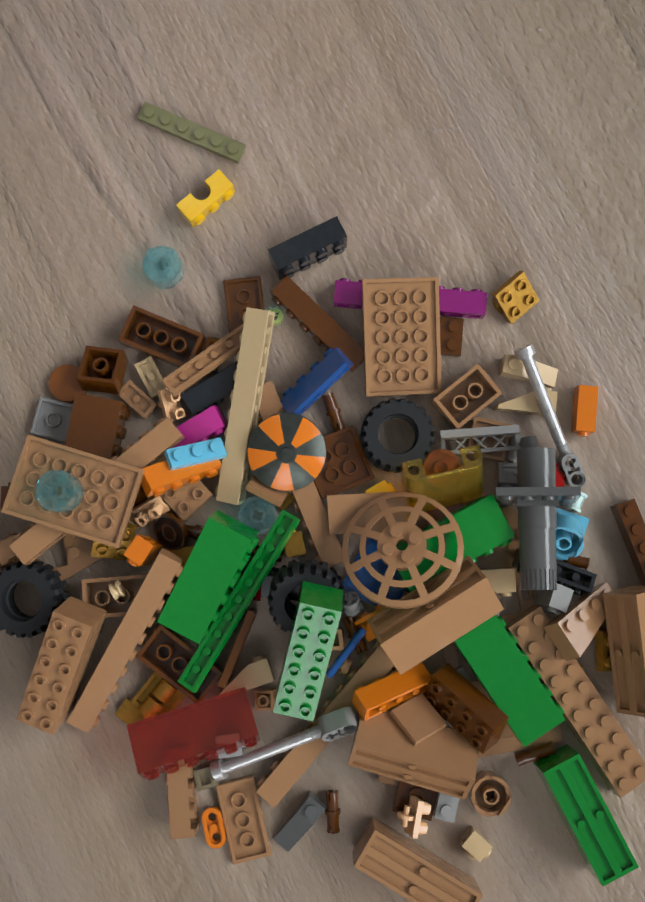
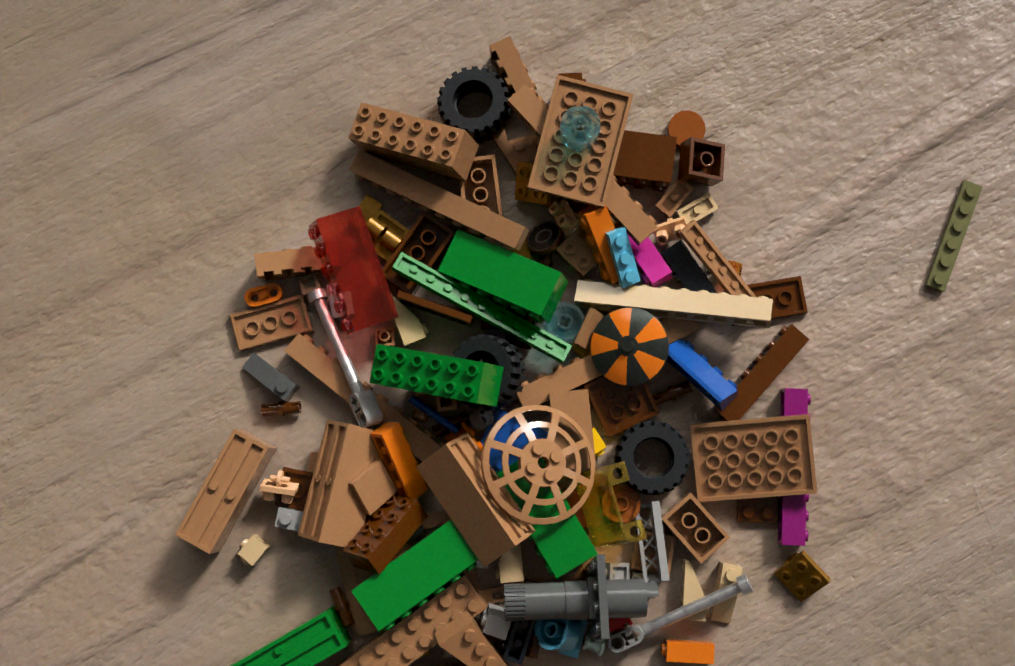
camera: 90 degrees right, 0 degrees up
(52, 419) = (649, 116): light grey plate -> none
(116, 589) = (486, 188): tan bush -> none
(142, 550) = (525, 211): orange brick -> none
(156, 259) = (803, 223): clear light blue brick -> none
(161, 337) = (737, 217): reddish brown brick -> none
(196, 210) = (871, 245): yellow arch -> none
(279, 315) = (768, 333): clear light blue tile -> none
(295, 545) = (537, 360): pearl gold brick -> none
(308, 248) = (839, 360): black brick -> none
(496, 803) = (291, 562): medium nougat brick -> none

